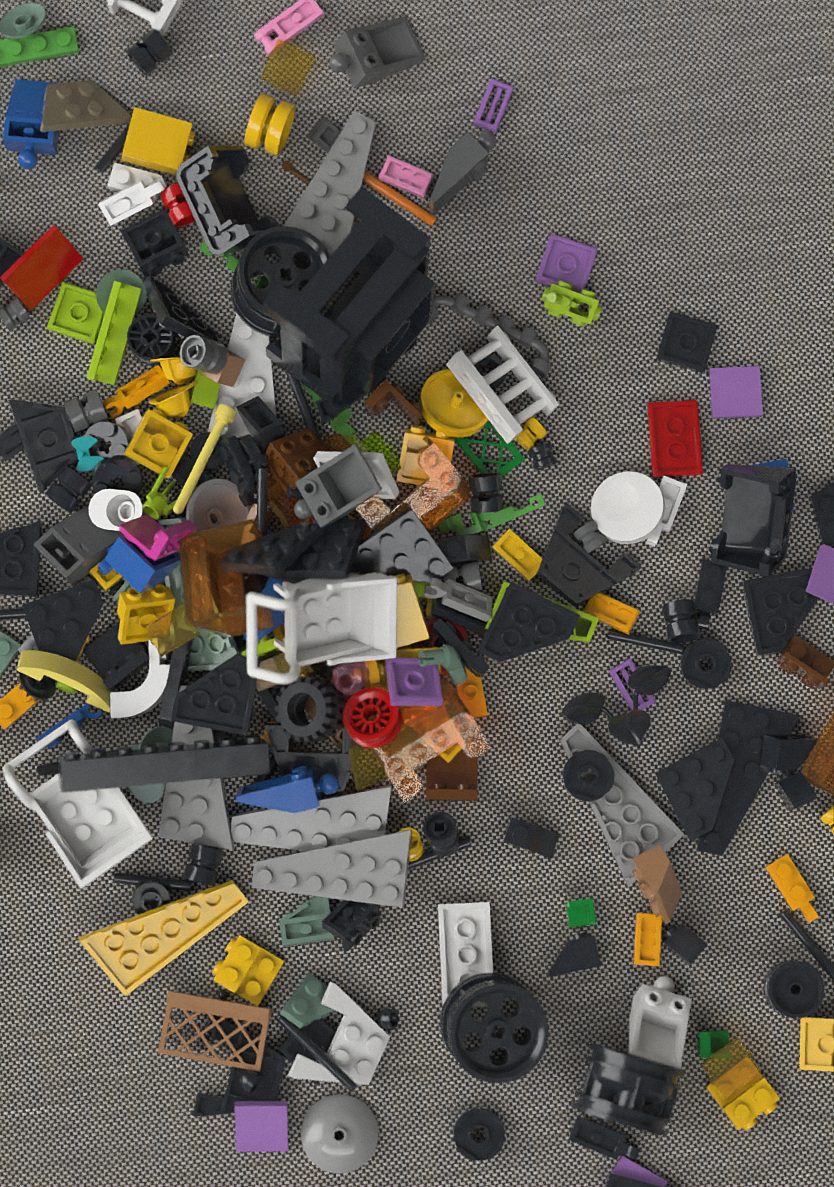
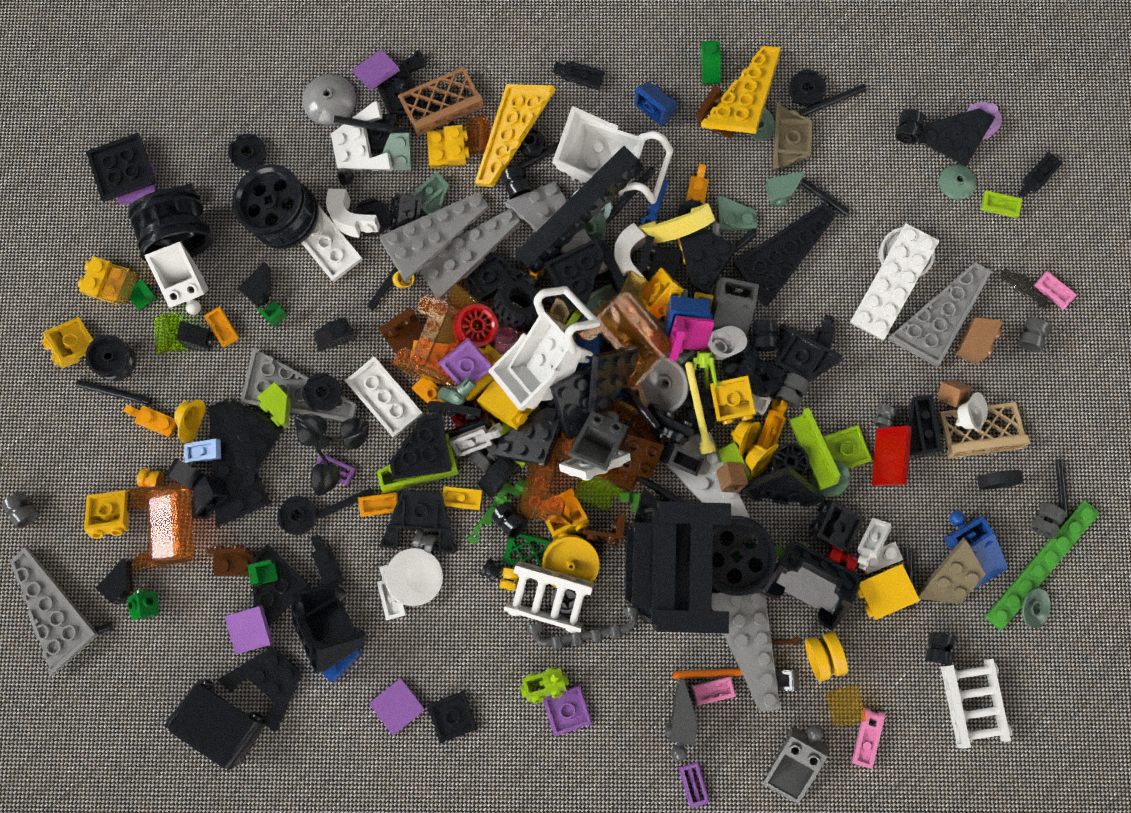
camera: 150 degrees right, 5 degrees down
(32, 945) = (579, 74): none -> black hinge
(82, 445) = (778, 367): teal piece -> none
(201, 960) = (478, 134): none -> clear orange slope
(203, 354) = (748, 470): dark grey wheel -> none
(289, 792) = (496, 250): blue slope -> none
(405, 939) = (377, 208): none -> black plate
(423, 984) = (348, 223): none -> white arch
(441, 834) = (387, 296): black wheel -> none
(524, 726) = (384, 397): none -> white plate
(645, 797) = (278, 403): none -> lime slope
(657, 882) = (234, 359): medium nougat slope -> none
(675, 439) = (415, 646): red tile -> none
(681, 623) = (329, 529): black wheel -> none
(711, 975) = (166, 333): none -> clear neon green panel
(753, 857) = (188, 419): none -> yellow piece
(761, 807) = (202, 451): none -> light blue plate
(782, 624) = (262, 572): none -> green panel

